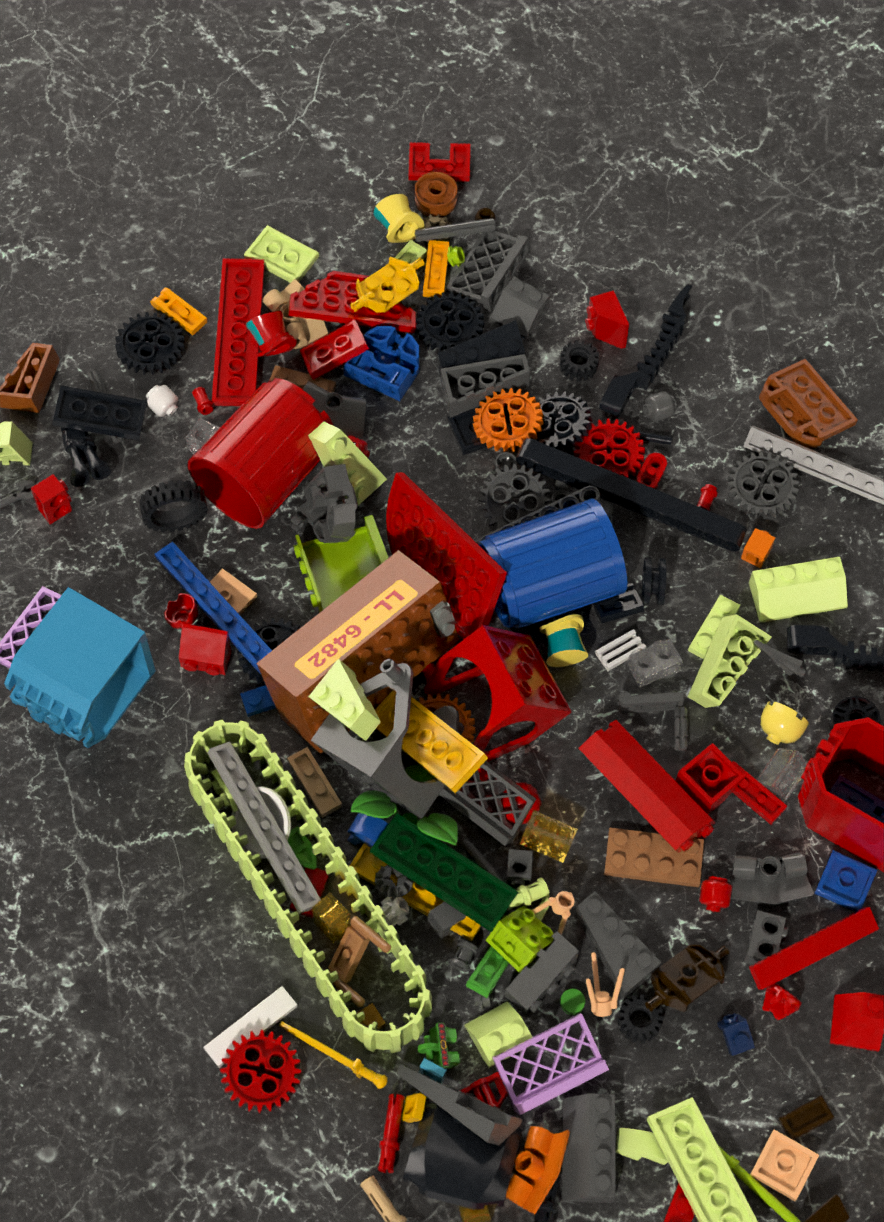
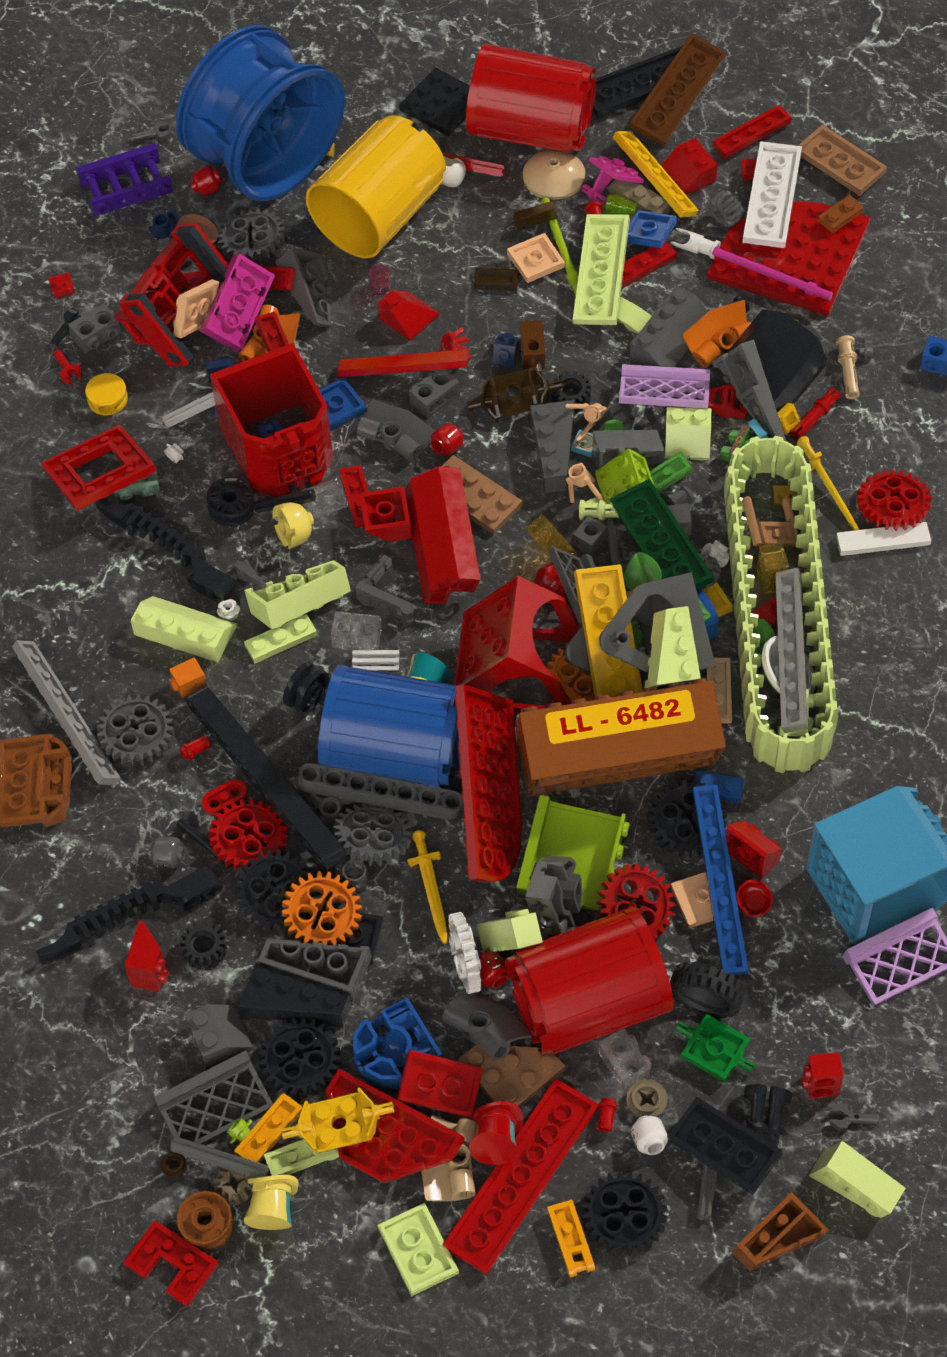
camera: 145 degrees left, 5 degrees down
(139, 480) = (715, 1048): none -> green plate
(174, 421) = (646, 1088): none -> dark tan gear
(271, 553) = (640, 881): none -> red gear
(375, 434) = (466, 957): none -> white gear
(452, 502) = (428, 875): none -> yellow sword
(585, 971) = (584, 446): none -> tile
(707, 1040) = (532, 345): none -> reddish brown torso
(776, 632) = (230, 614): none -> white plate
(803, 743) = (298, 497): none -> black axle

